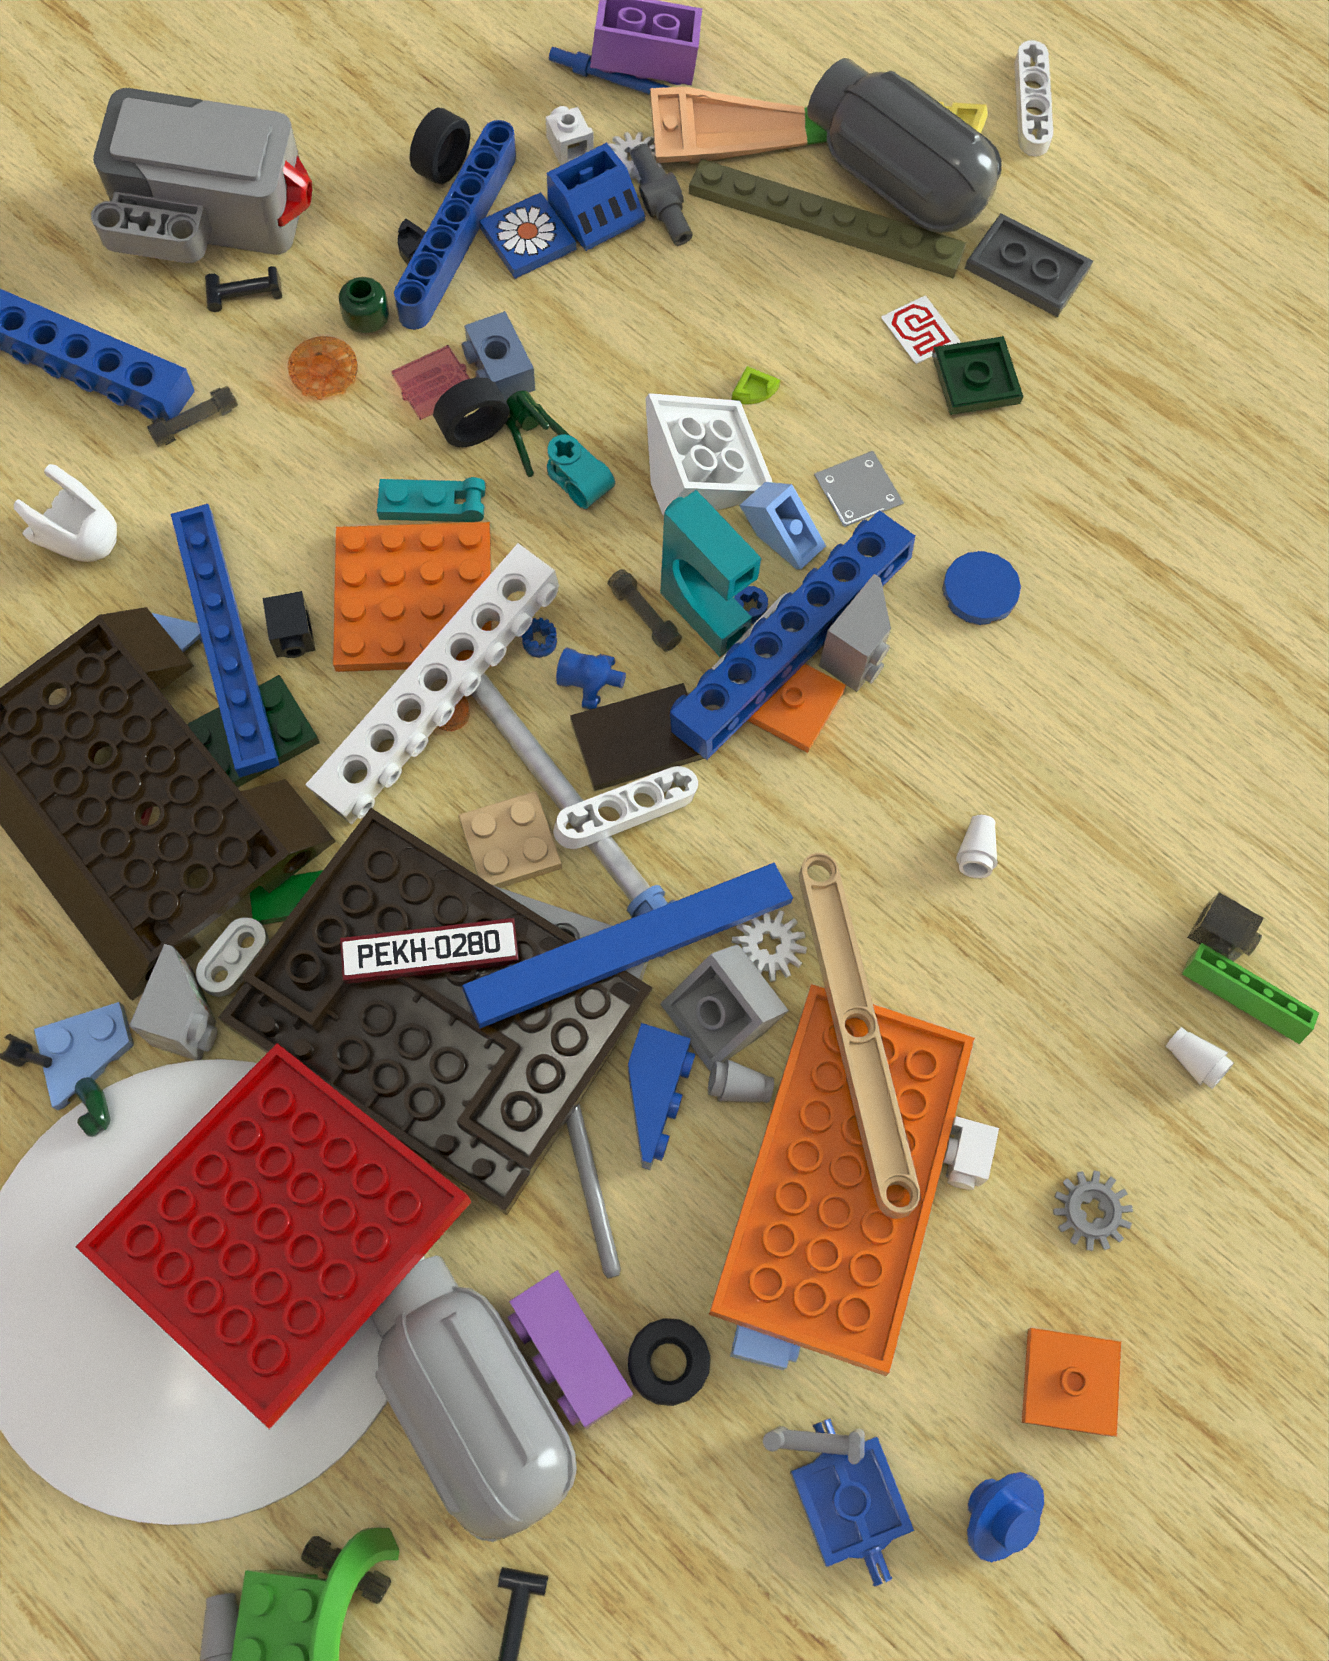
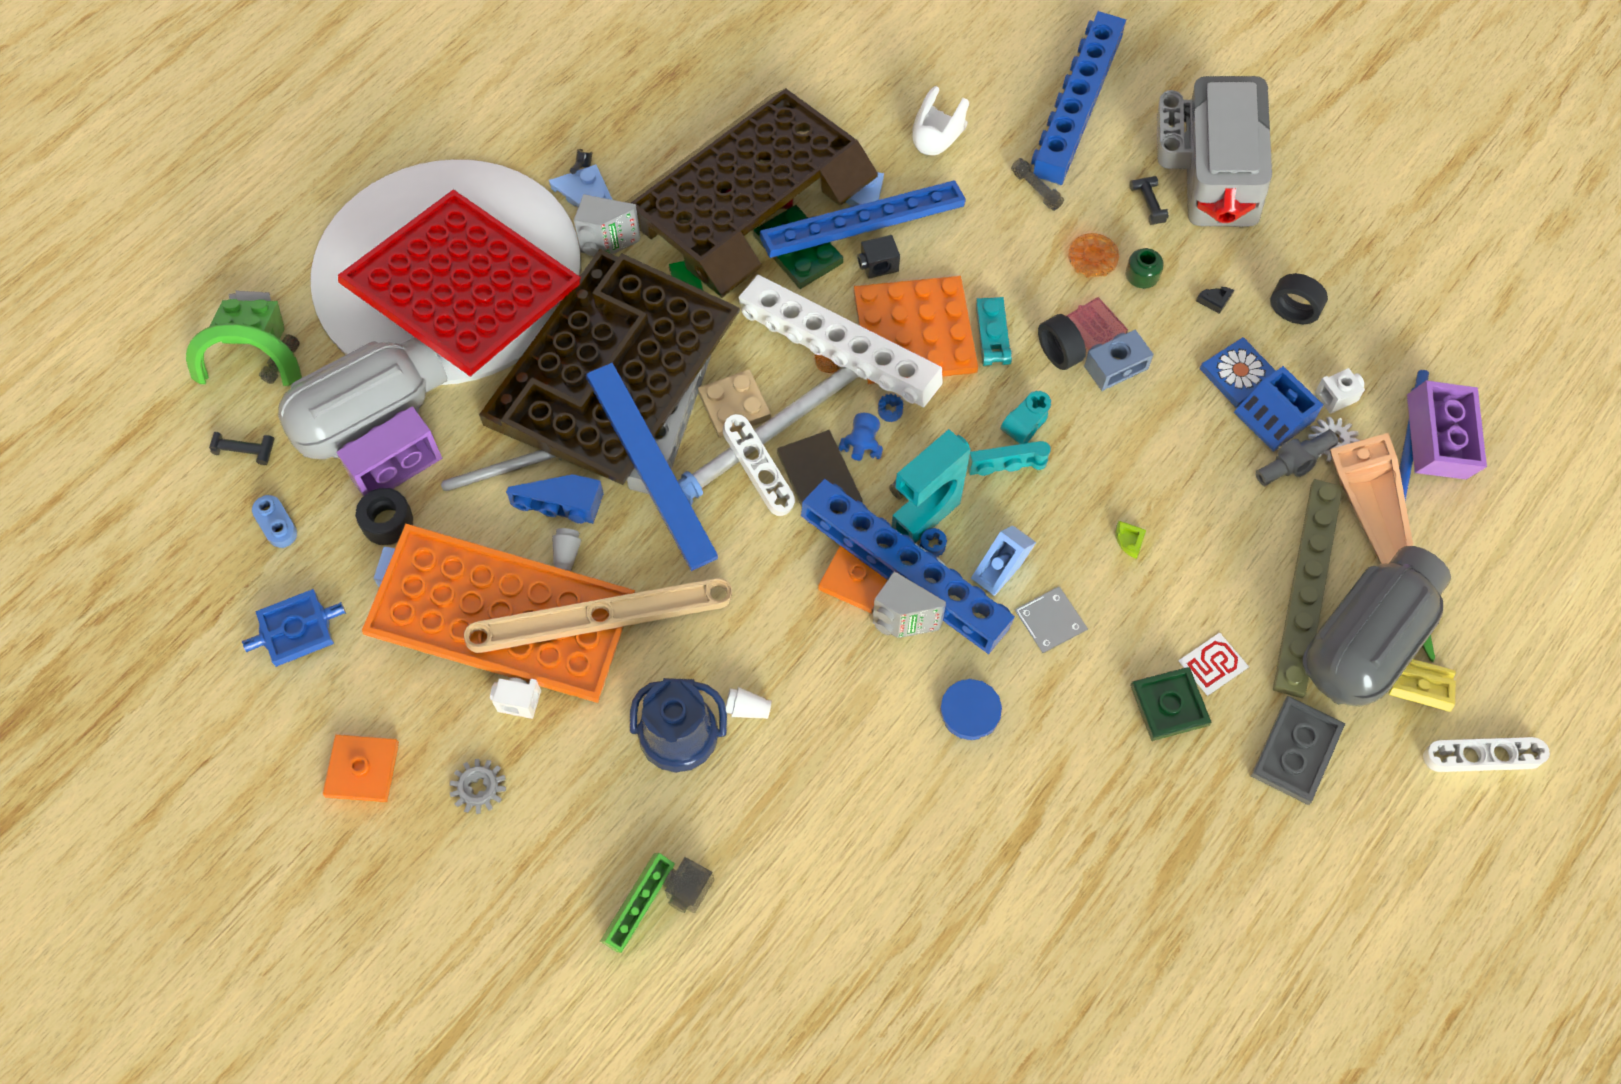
camera: 90 degrees right, 5 degrees down
(94, 1100) = (545, 196): dark green arm -> none
(230, 956) = (646, 253): white plate -> none
(429, 950) = (640, 349): tile -> none
(455, 225) = (1236, 321): blue beam -> none
(527, 415) = (1072, 382): dark green plant -> none
(638, 498) = (1009, 458): none -> teal plate
(657, 1552) = (273, 519): none -> medium blue plate
(703, 449) = (1058, 501): white slope -> none
(724, 1005) = (620, 538): light grey slope -> none
(784, 952) = (660, 576): white gear -> none
(850, 1445) = (334, 586): light grey piece -> none
(1004, 1516) = (275, 715): blue piece -> none
(1016, 931) = (677, 724): none -> dark blue piece
(1200, 1058) = (586, 863): white cone -> none

